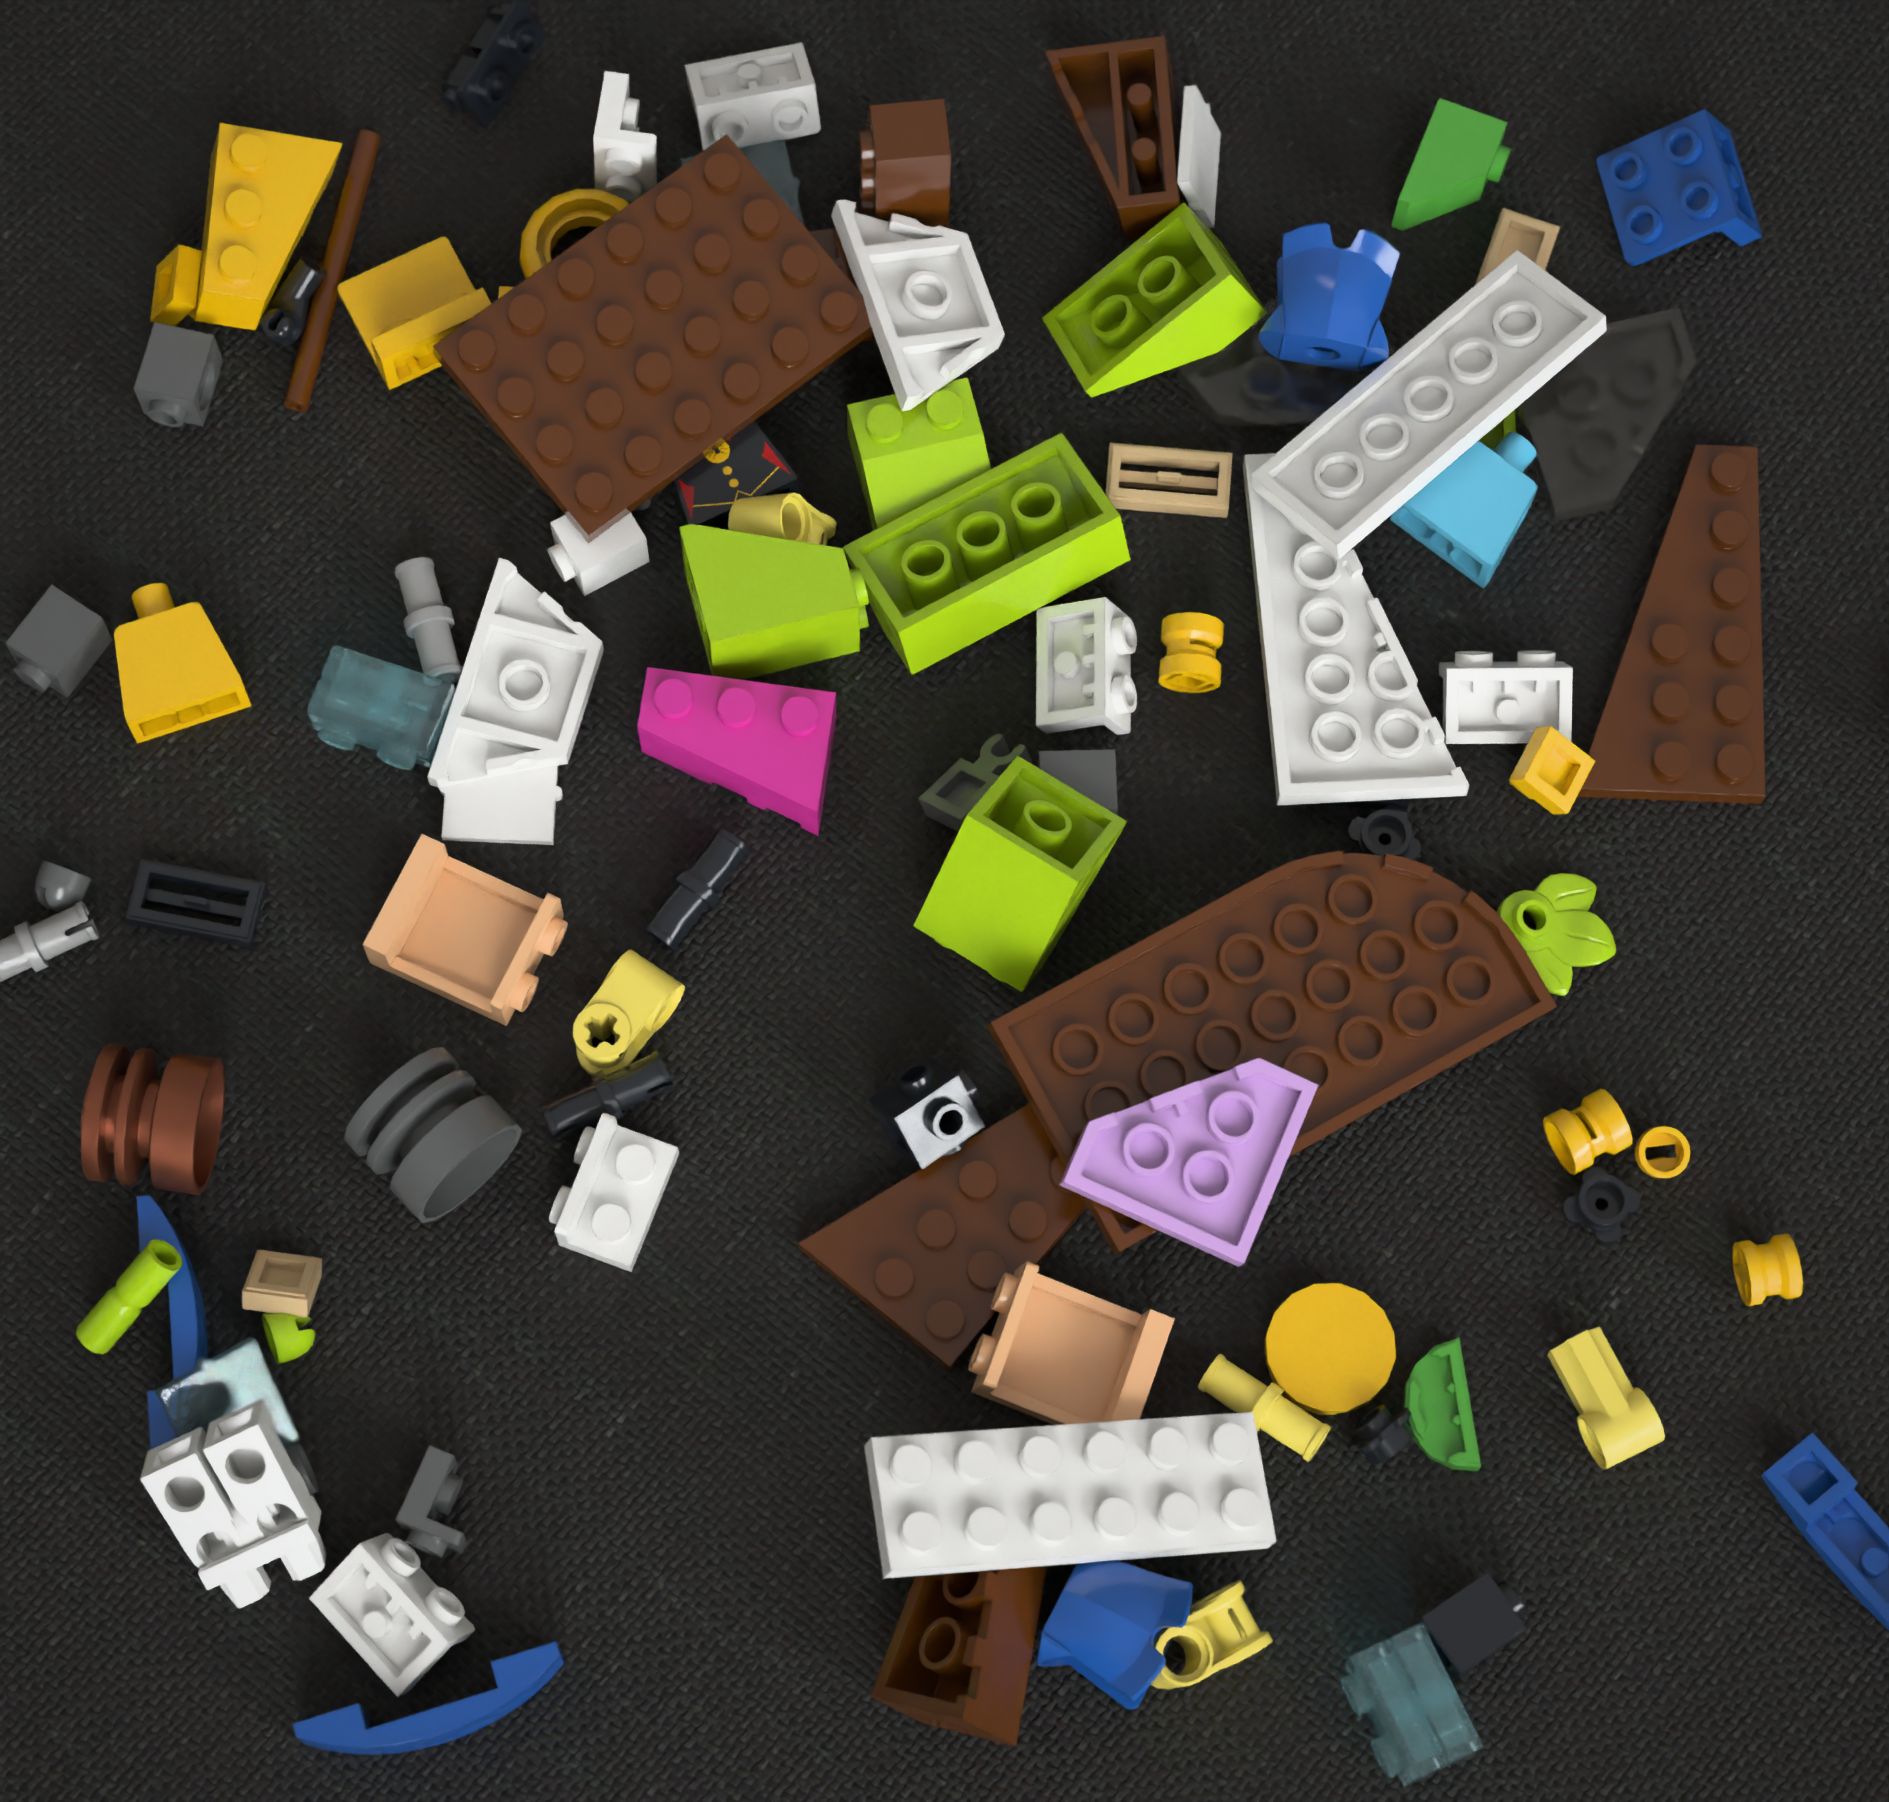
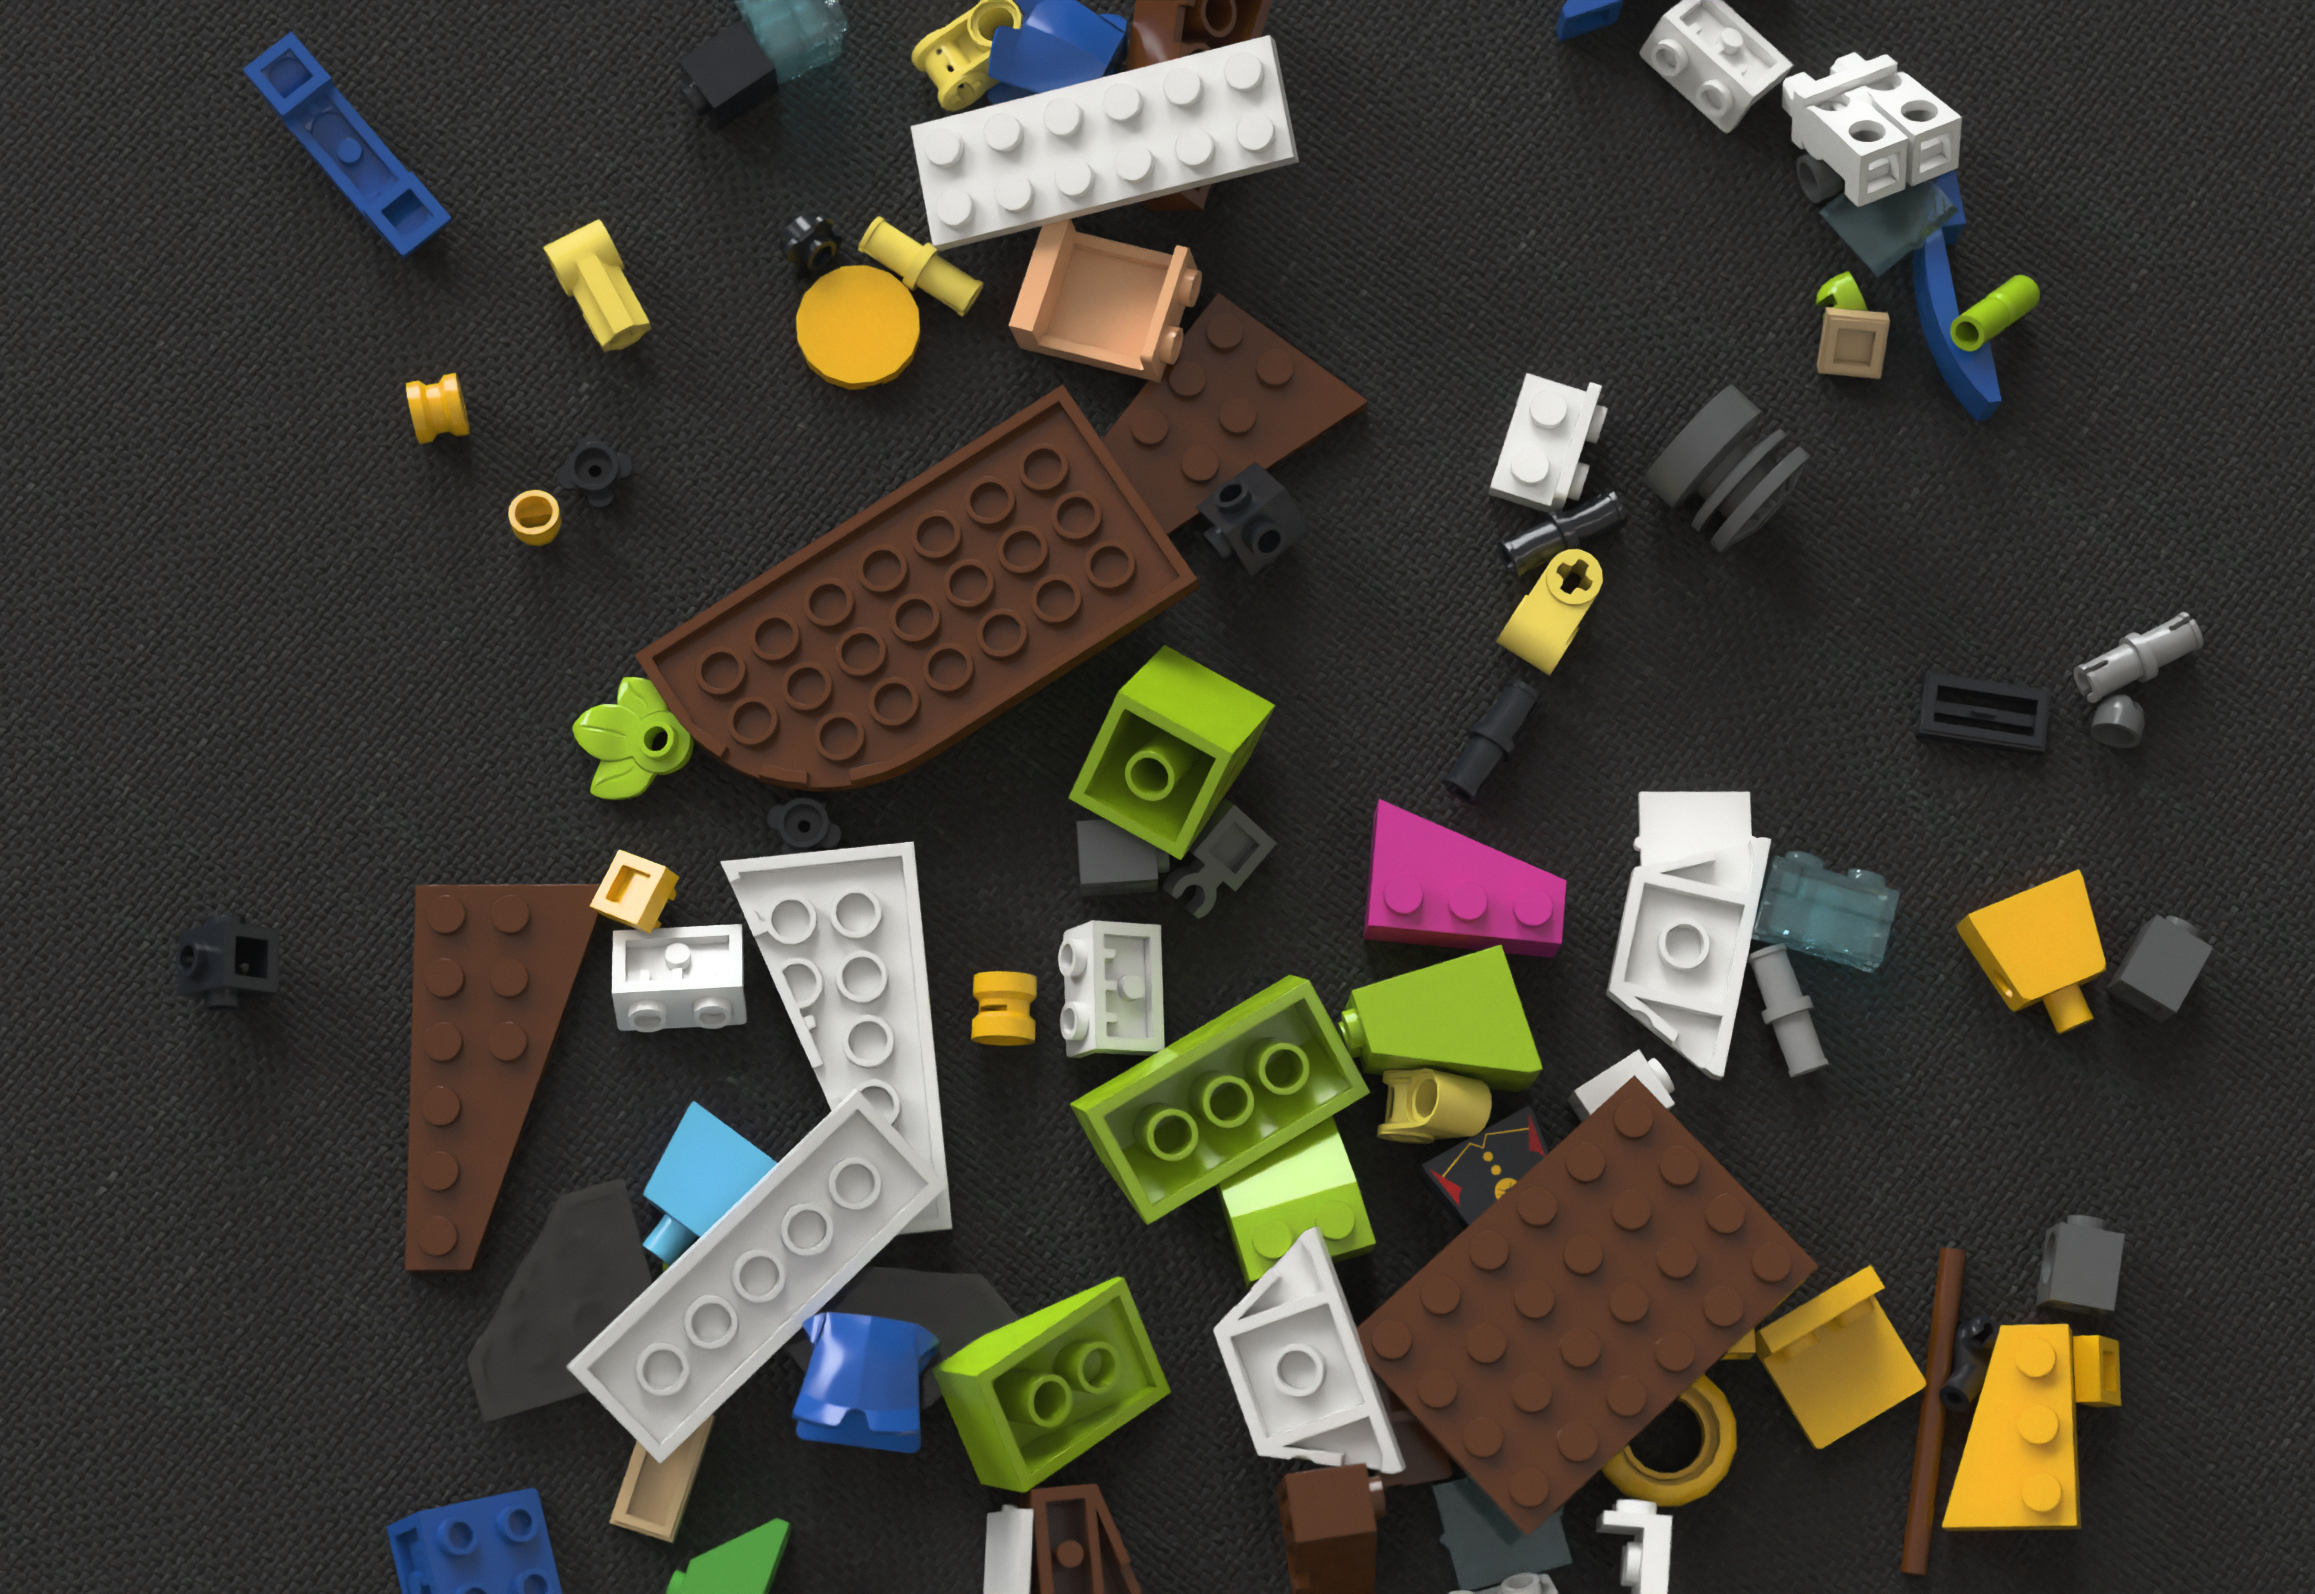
camera: 175 degrees right, 5 degrees up
(139, 1117) = (2008, 474): copper wheel -> none
(432, 1492) = (1695, 137): dark grey bracket -> none
(464, 933) = (1714, 690): light nougat panel -> none
(1169, 501) = (1019, 1235): tan tile -> none
(1197, 1156) = (991, 464): lavender plate -> none
(1442, 1408) = (754, 279): bright green tile -> none
(1587, 1131) = (595, 540): yellow wheel -> none

